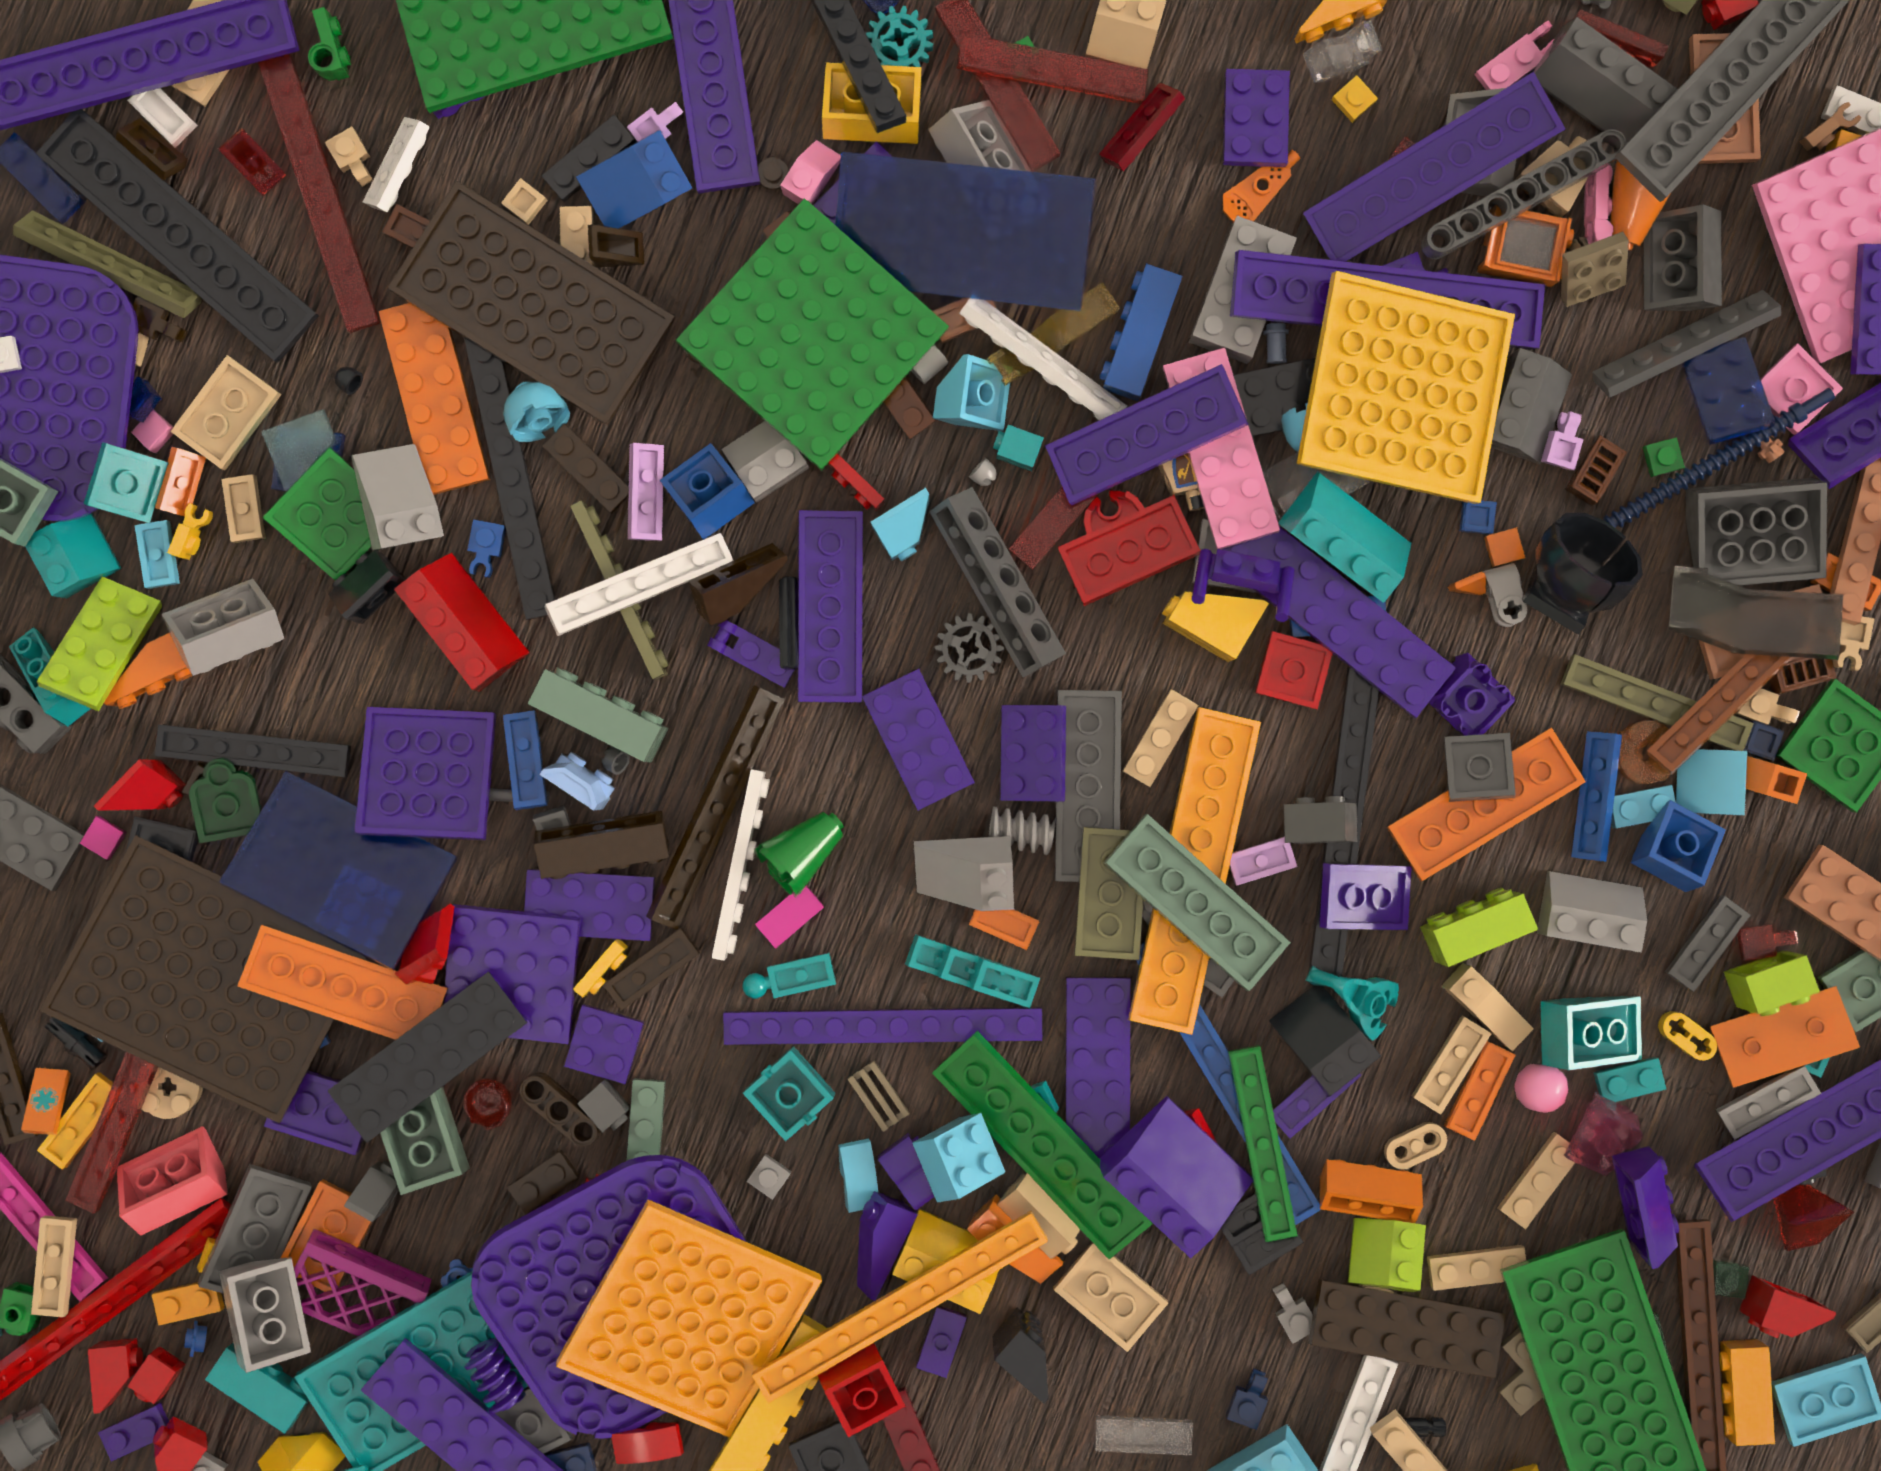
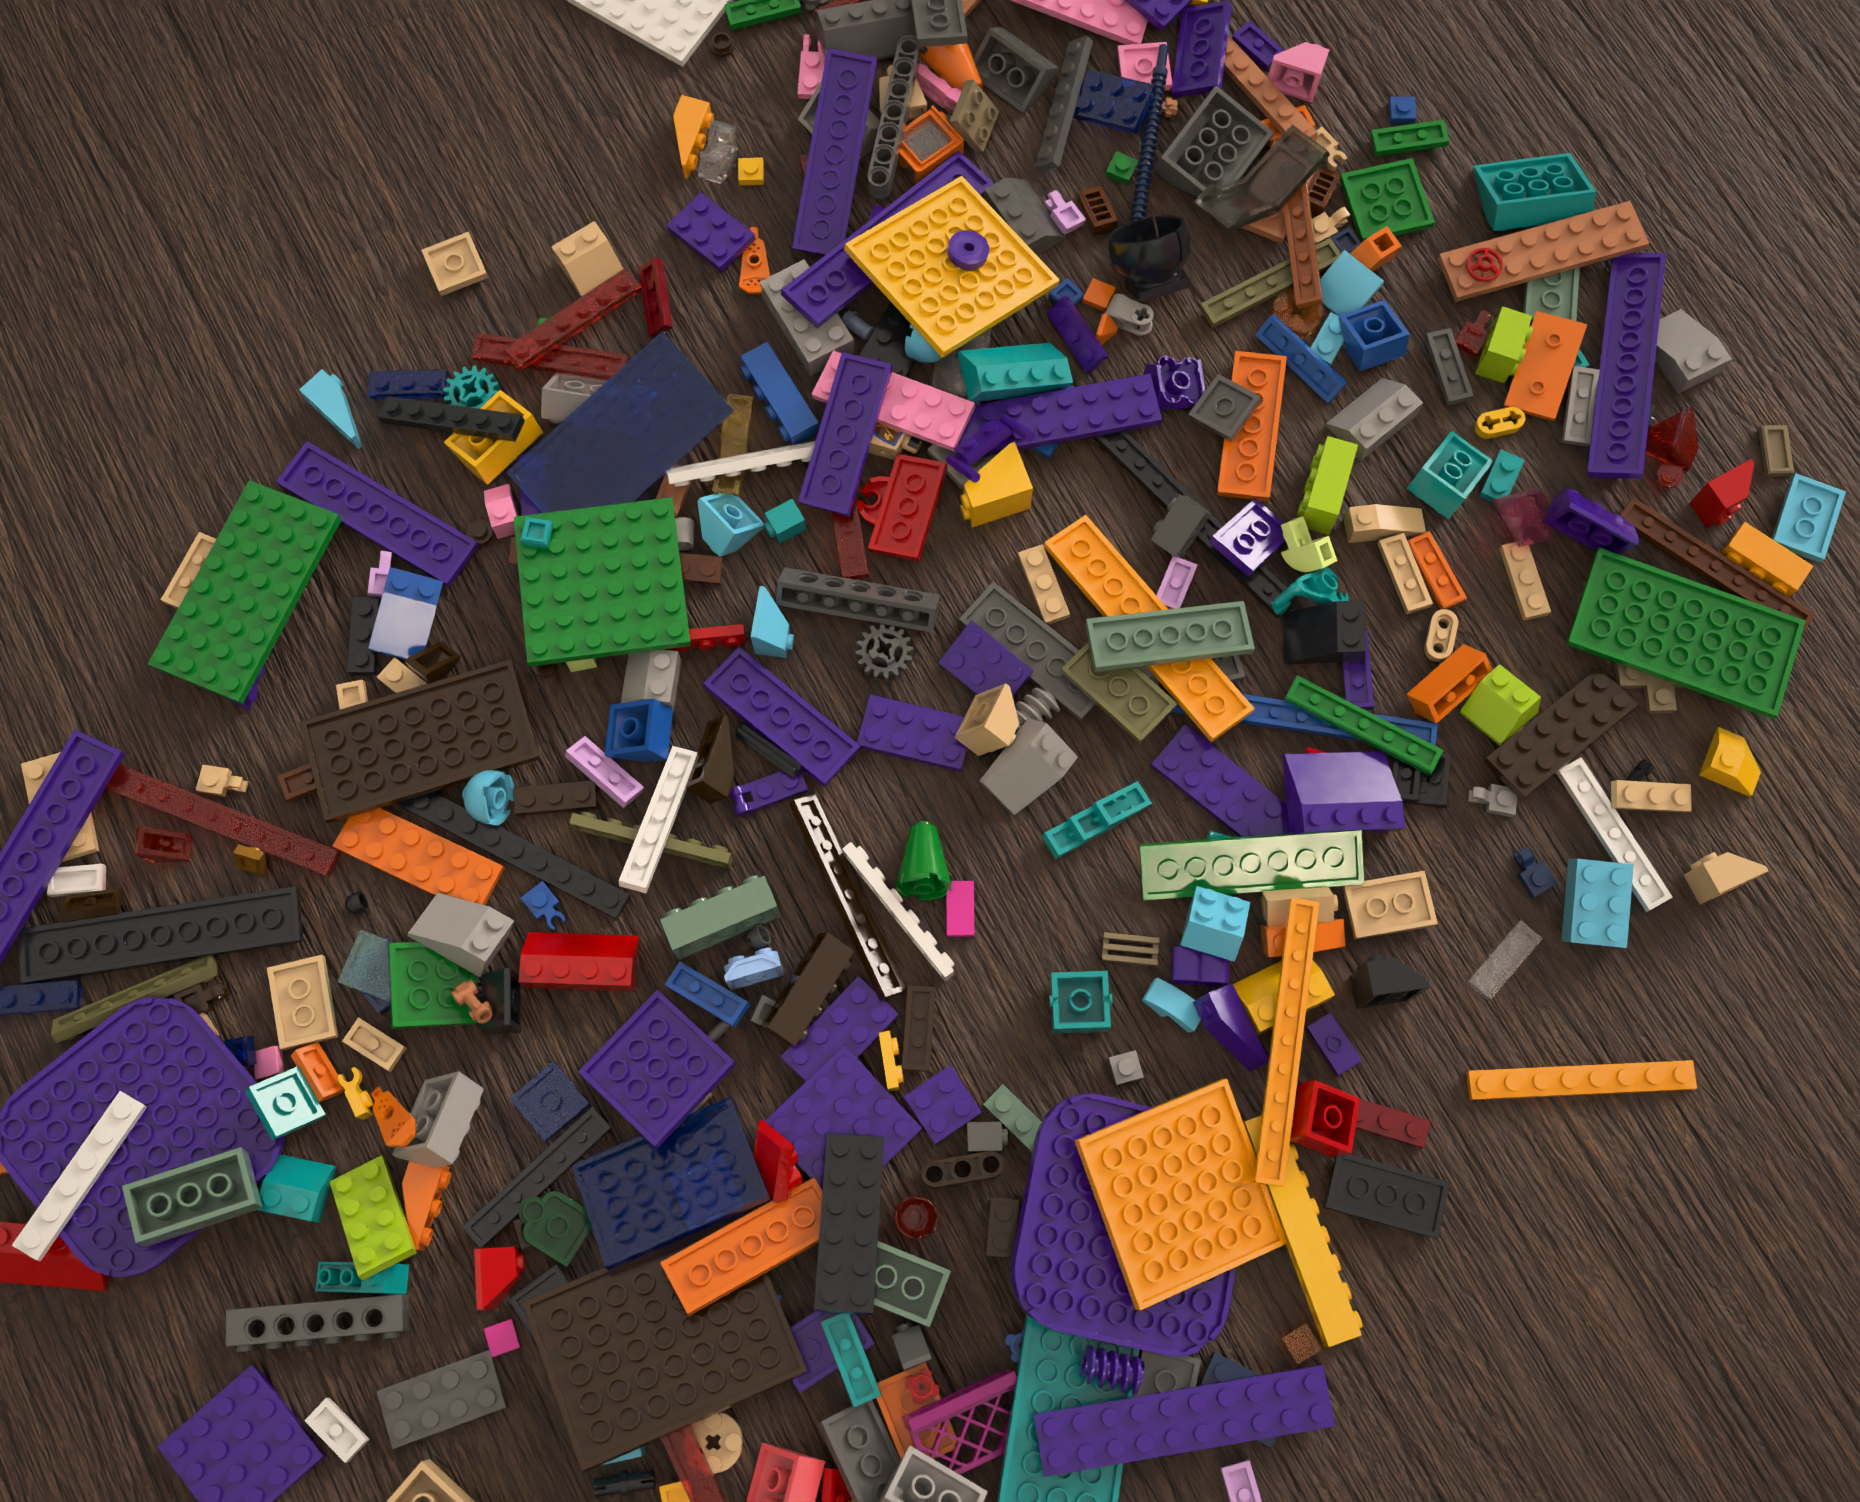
camera: 55 degrees left, 15 degrees down
(157, 565) = (350, 1130): medium azure plate -> none
(188, 599) = (396, 1129): none -> orange piece
(306, 250) = (250, 859): none -> pearl gold plate
(321, 1151) = (851, 1359): none -> teal plate
(323, 704) = (550, 1101): none -> clear blue plate
(329, 30) = (141, 736): green plate -> none
(343, 1229) = (923, 1378): none -> red plate
(346, 551) = (466, 994): none -> nougat bar
(396, 164) = (253, 756): white plate -> none
(648, 1444) = (1247, 1306): red slope -> none
(792, 977) = (1002, 939): teal plate -> none
(804, 235) = (536, 532): none -> teal tile
(881, 1025) = (1082, 911): dark purple plate -> none
(978, 803) = (989, 721): none -> tan slope
(983, 473) = (779, 556): light grey hinge -> none
(1006, 925) = (1083, 775): orange tile -> none
(1293, 670) = (1069, 471): red plate -> none
(1391, 958) = (1304, 553): none -> yellowish green brick
(1442, 561) = (1077, 334): none -> dark purple plate
(1447, 392) = (968, 259): none -> dark purple piece
(1472, 1267) = (1551, 663): tan plate -> none
(1541, 1088) = (1464, 532): bright pink hair -> none
(1730, 1279) = (1683, 515): clear green plate -> none
(1764, 1237) = (1669, 475): none -> clear red plate
(1838, 899) = (1486, 251): none -> red piece

